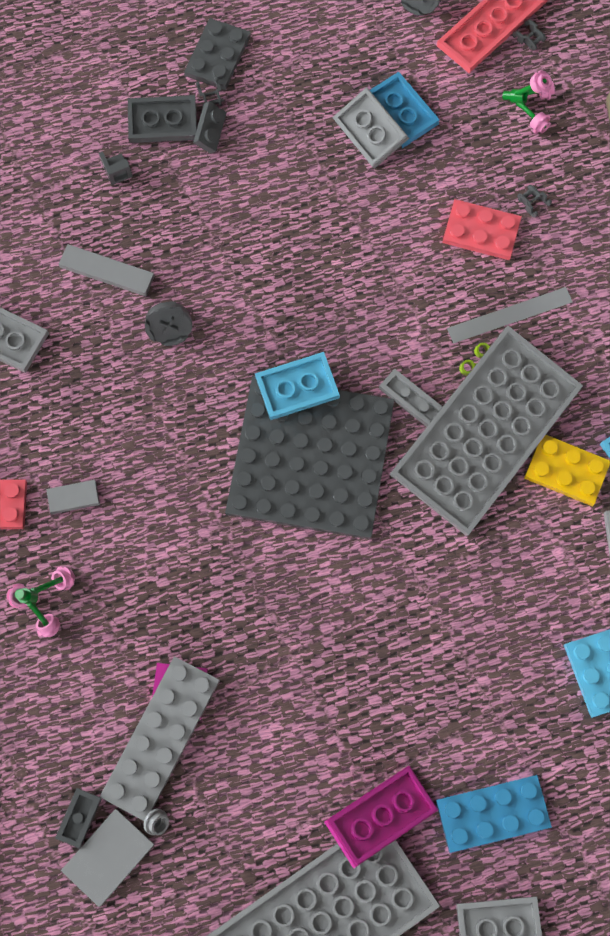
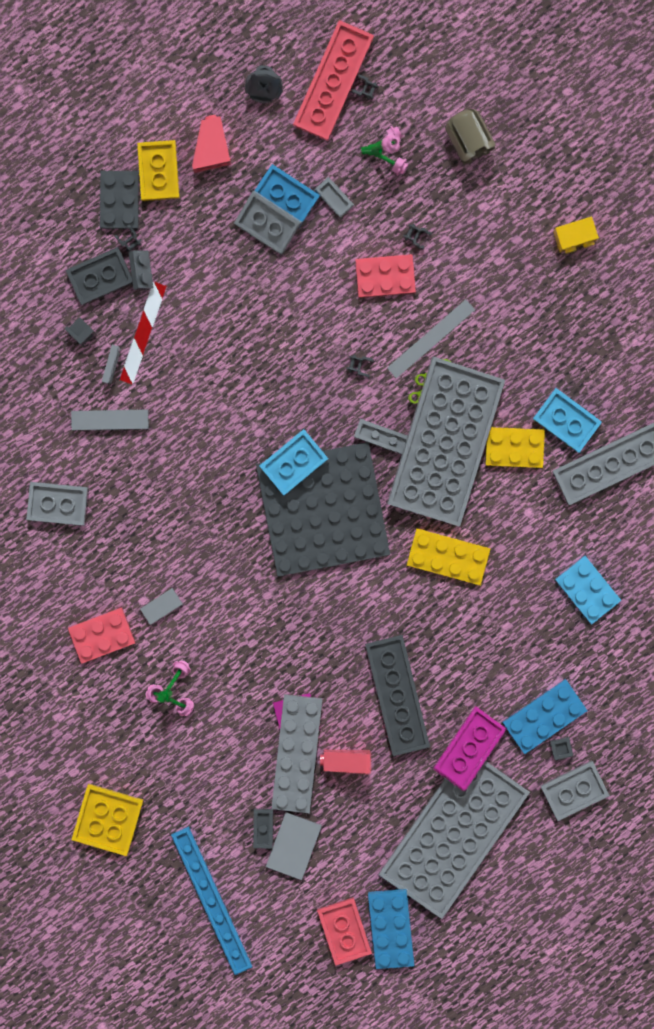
camera: 25 degrees left, 15 degrees up
(133, 211) = (111, 364): none -> light grey tile
(156, 822) = (317, 811): light grey plate -> none
(168, 323) = (176, 448): dark grey tile -> none
(183, 195) = (142, 333): none -> sticker
(218, 769) = (346, 761): none -> coral slope
(272, 38) = (158, 170): none -> yellow plate
(315, 714) = (397, 695): none -> dark grey plate
(338, 33) = (211, 146): none -> coral slope
(419, 307) = (353, 358): none -> dark grey piece
(441, 567) = (448, 556): none -> yellow plate
(454, 131) = (334, 197): none -> light grey tile
(501, 863) = (561, 748): none -> dark grey plate

